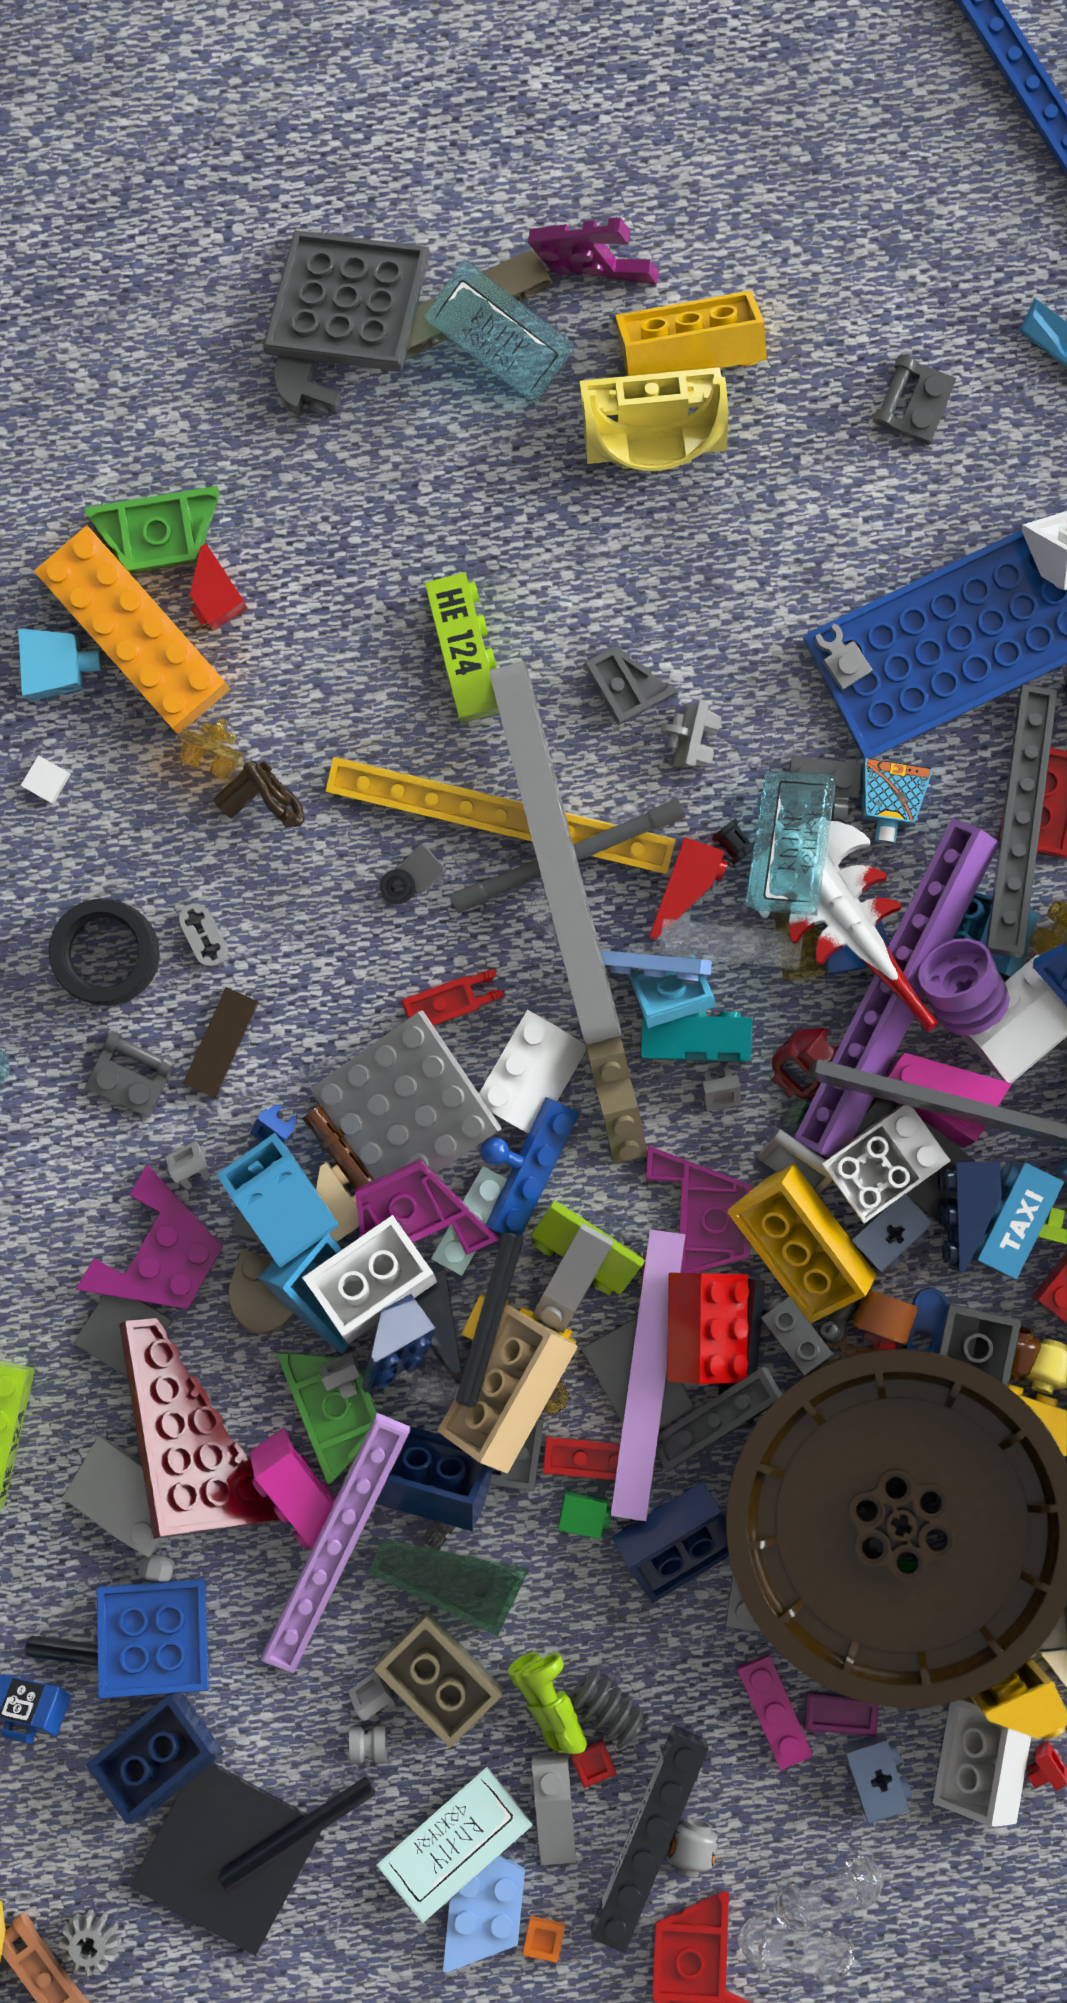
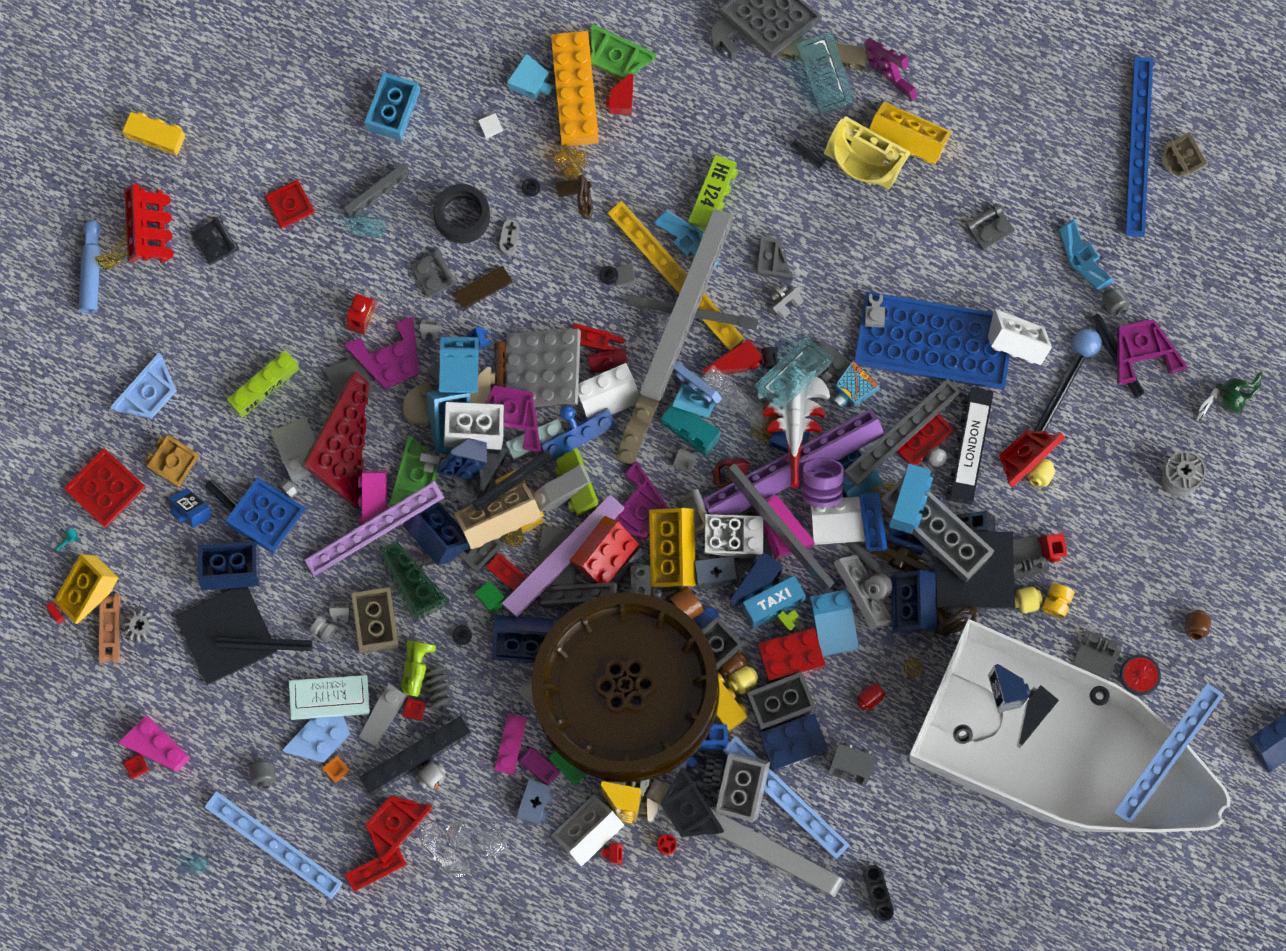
camera: 30 degrees right, 10 degrees down
(65, 1218) = (360, 312): none -> red torso
(169, 828) = (528, 182): none -> black plate
(476, 740) = (687, 235): none -> dark azure plate
(493, 1022) = (607, 360): none -> dark red plate
(560, 478) = (808, 153): none -> black pin
(573, 1608) = (457, 631): none -> black plate

